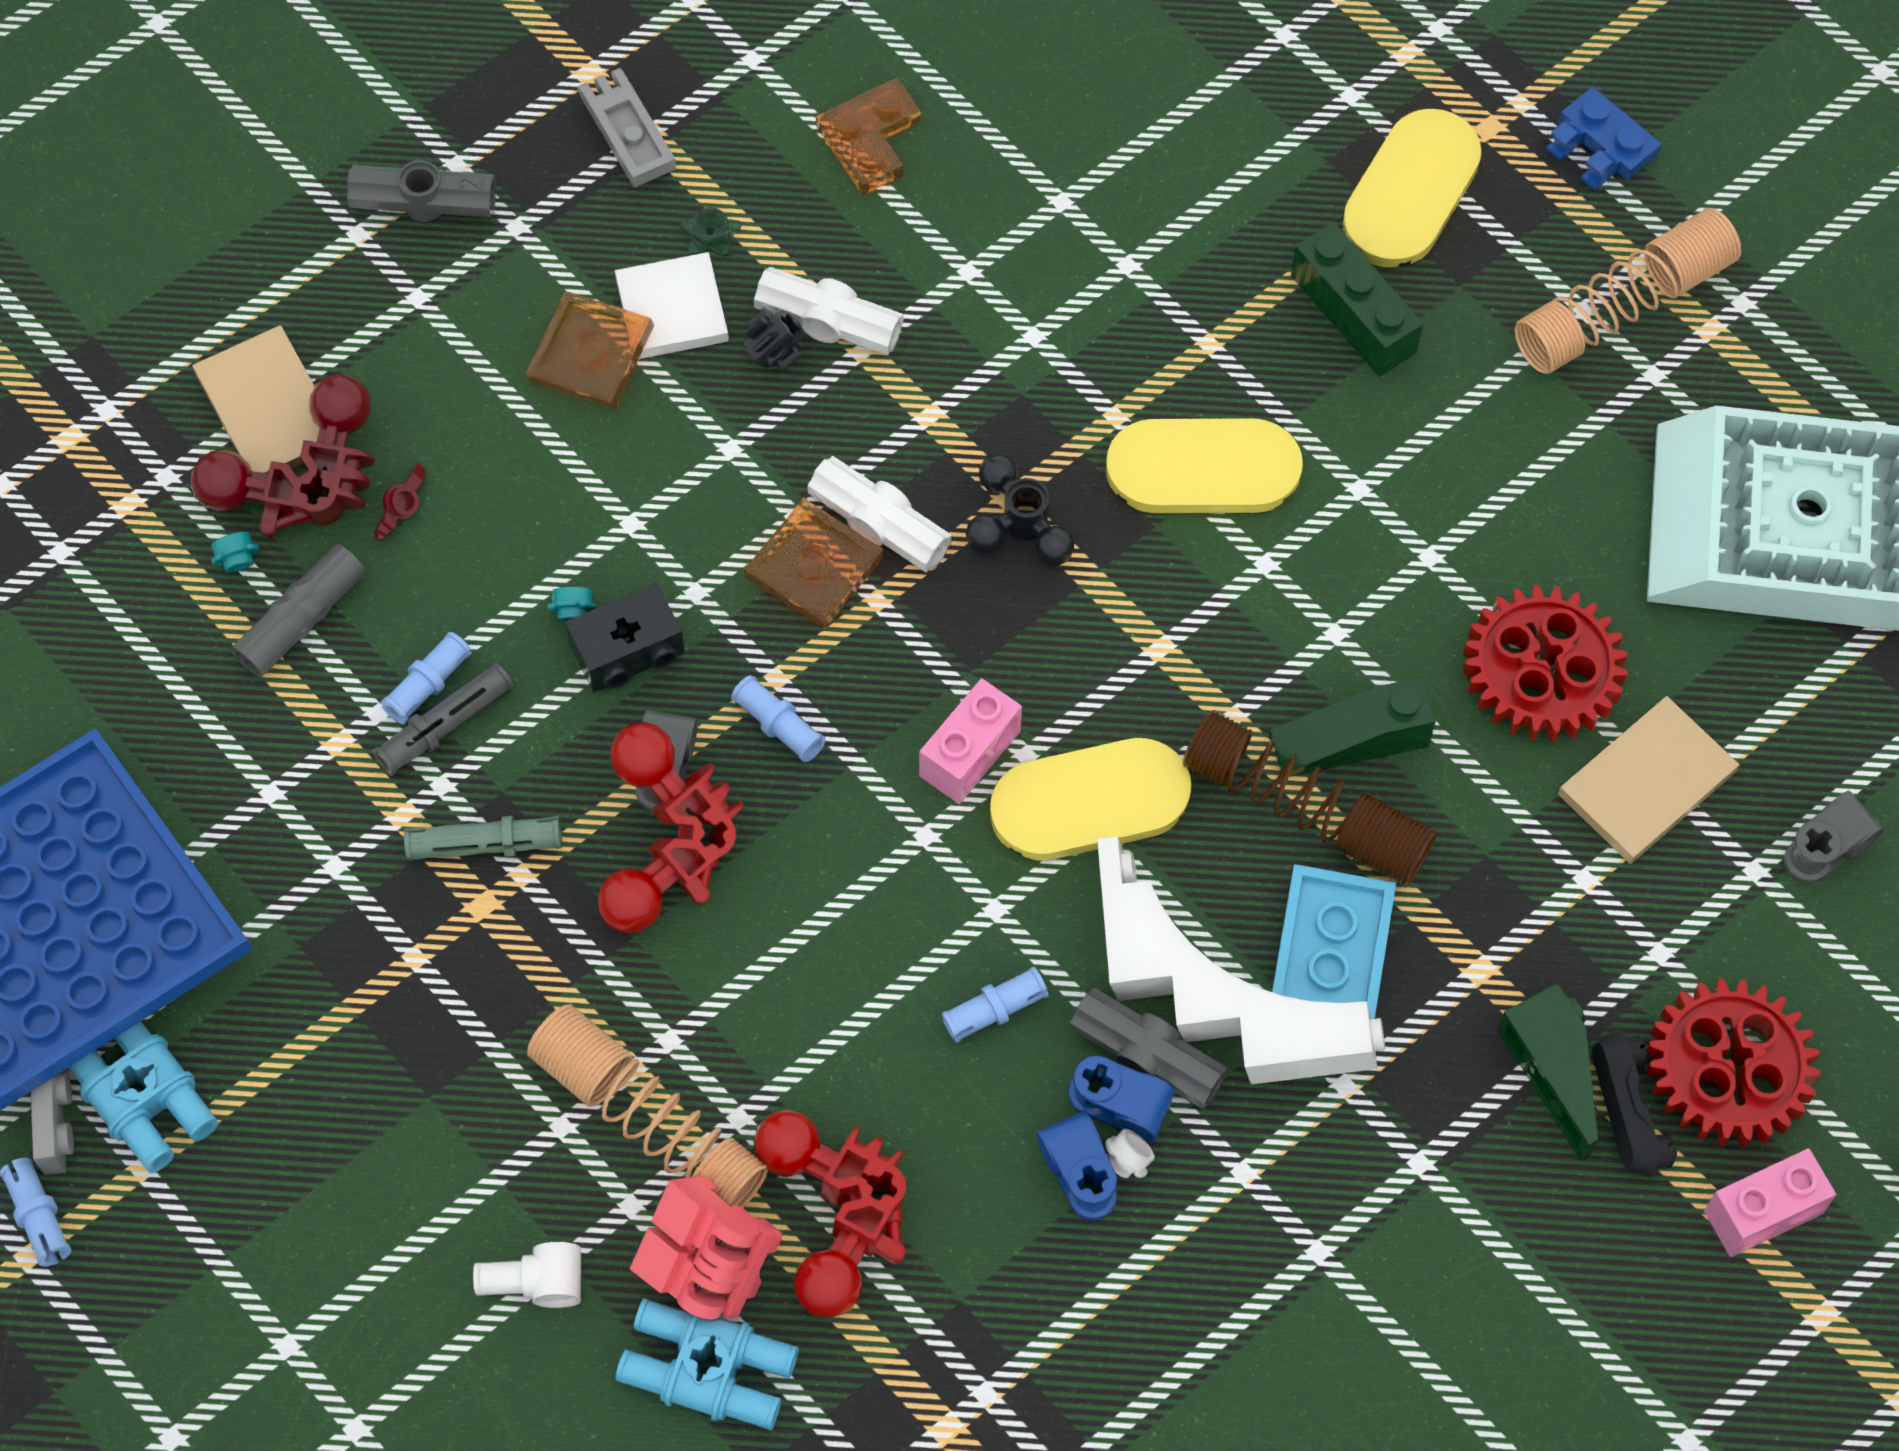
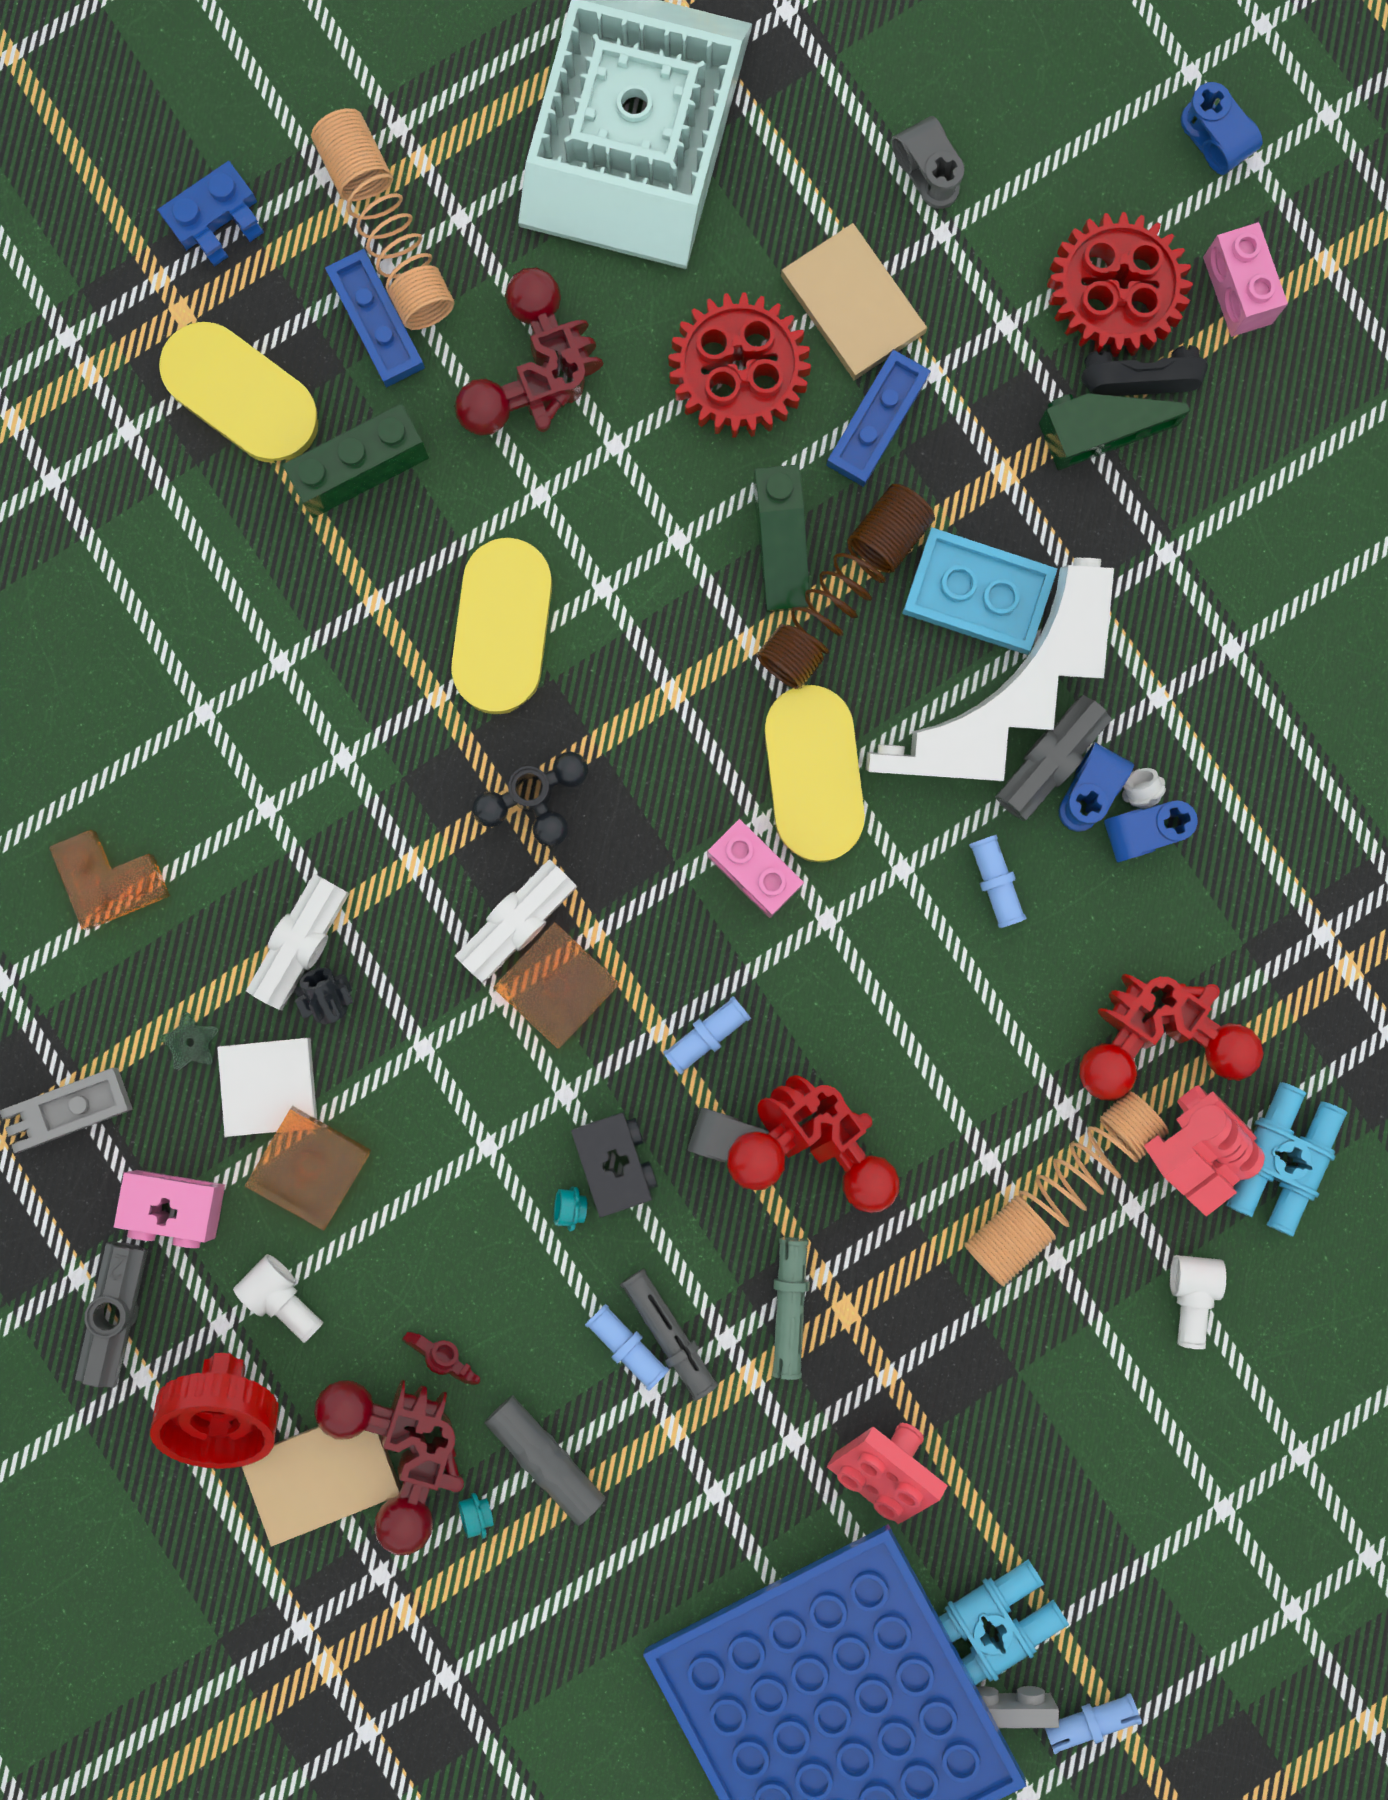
camera: 85 degrees left, 20 degrees up
(309, 948) = (888, 1473): none -> coral plate
(325, 286) = (215, 1416): none -> red piece
(456, 331) = (271, 1291): none -> white pin
(536, 228) = (196, 1204): none -> bright pink brick
(1494, 314) = (375, 318): none -> blue plate
(1515, 817) = (878, 418): none -> blue plate
(1571, 446) = (533, 299): none -> dark red piece

